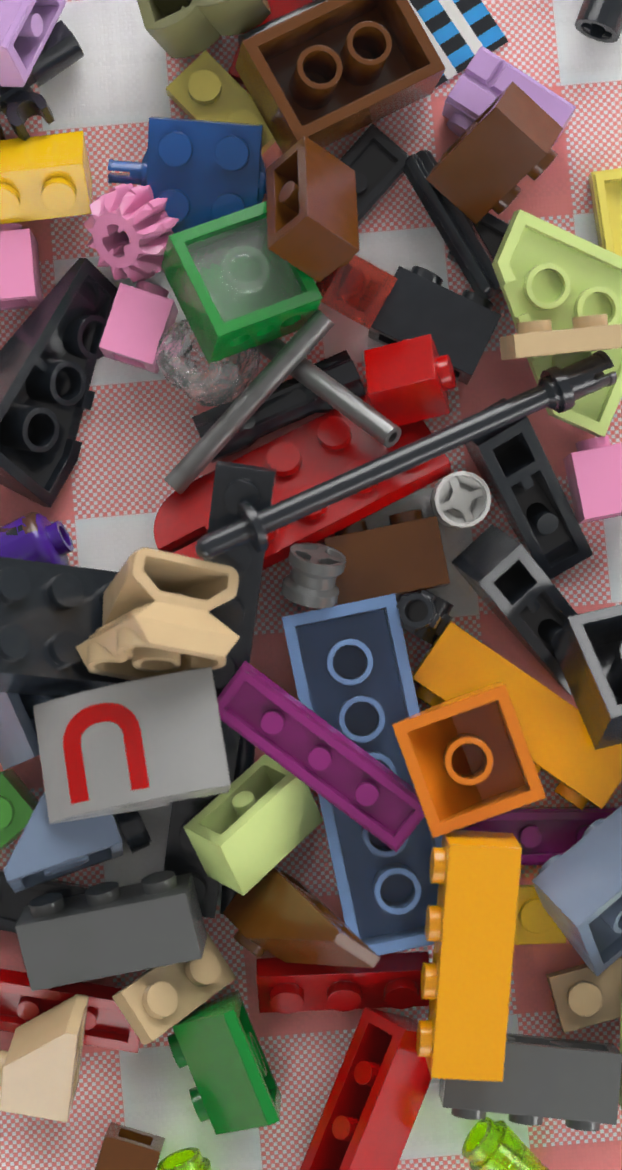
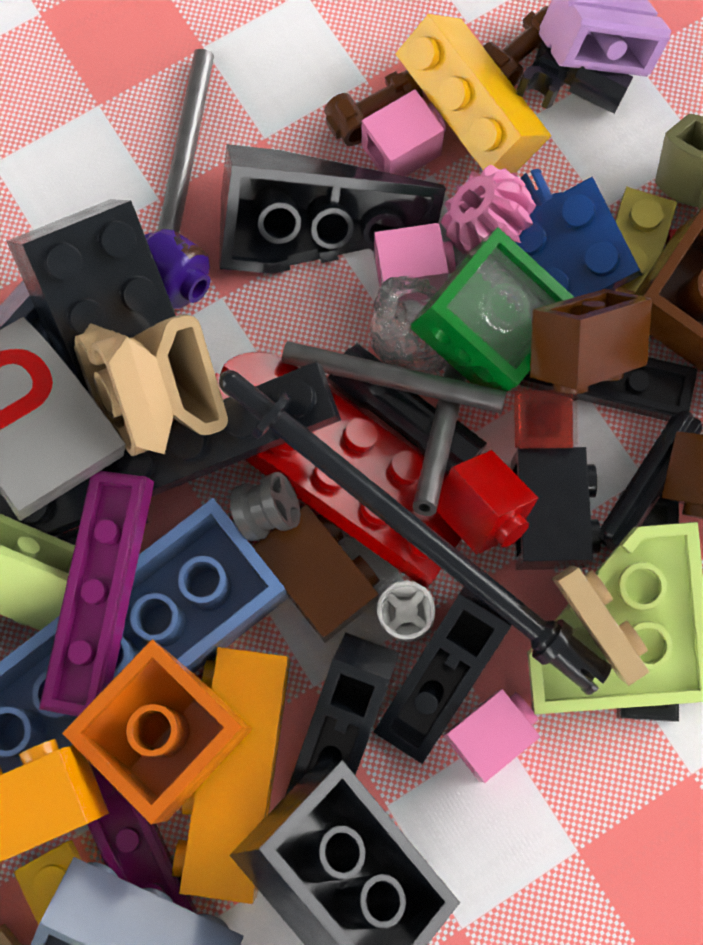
camera: 65 degrees right, 10 degrees down
(424, 614) = (283, 628): black bar -> none

